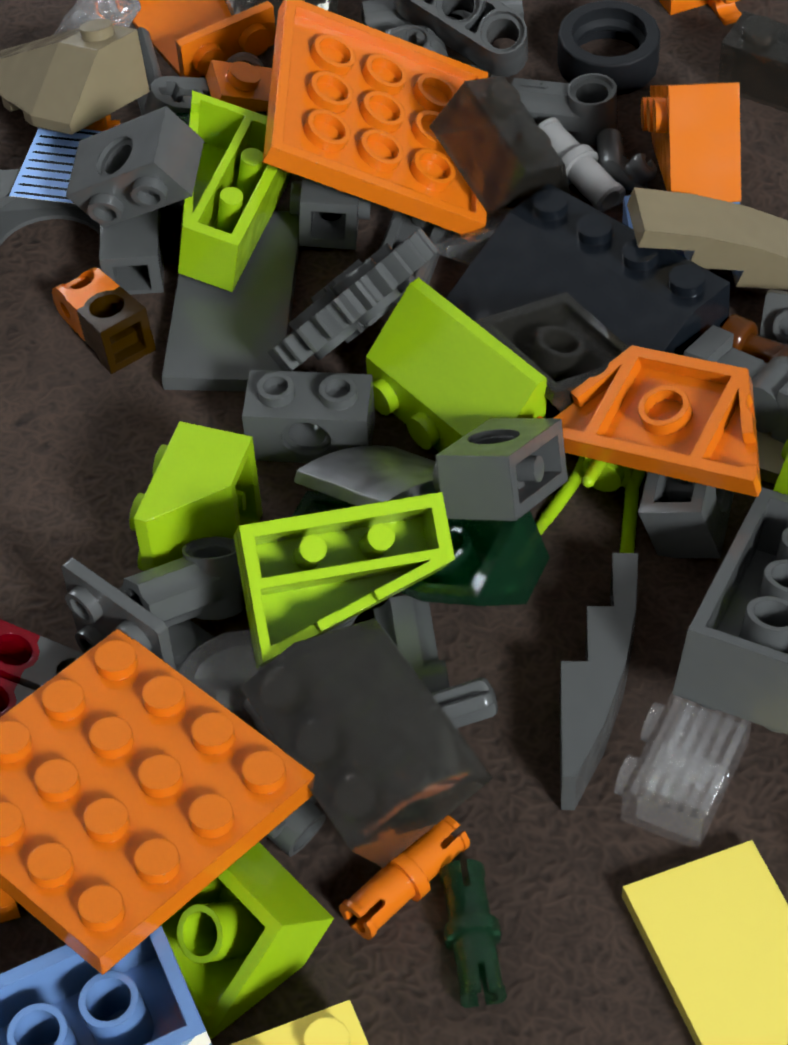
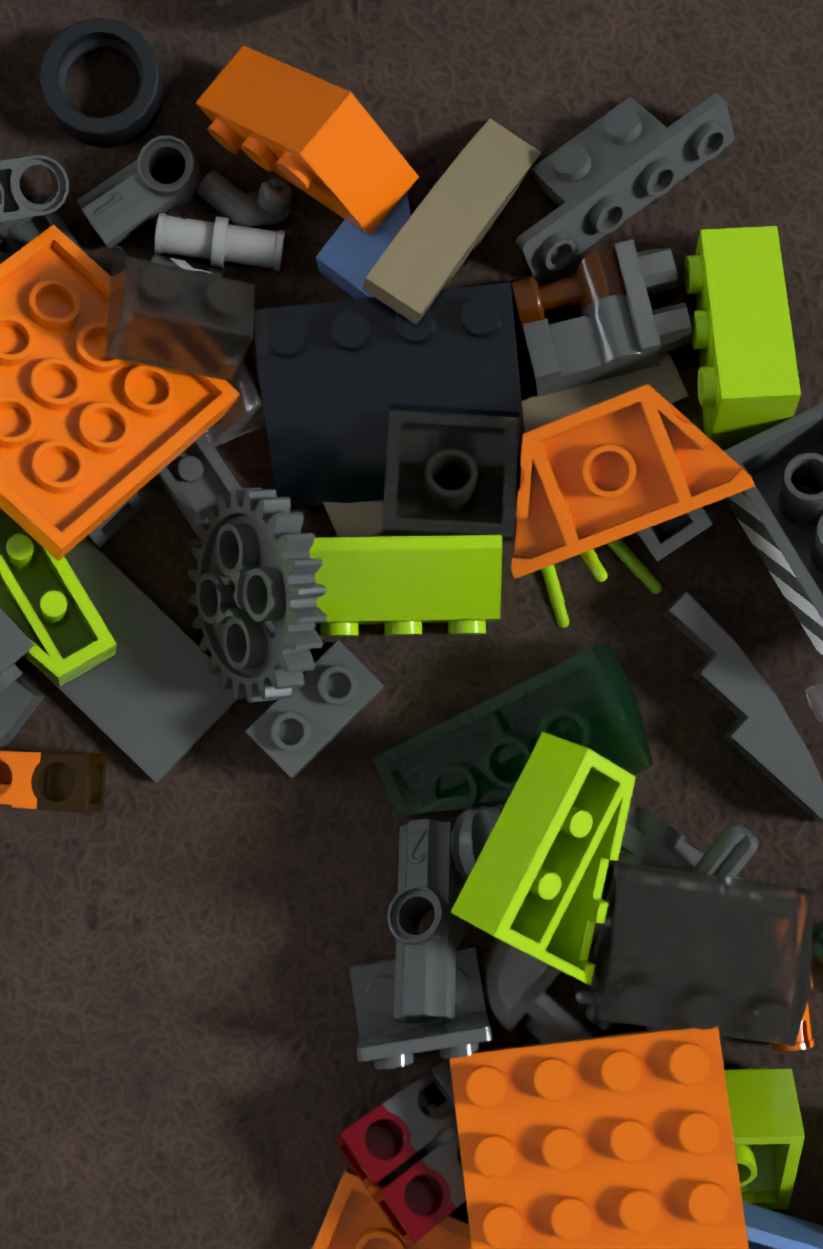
camera: 55 degrees left, 35 degrees up
(198, 489) = (350, 881): lime slope -> none
(369, 474) = (450, 715): flat silver slope -> none
(501, 468) = (577, 667): dark grey brick -> none

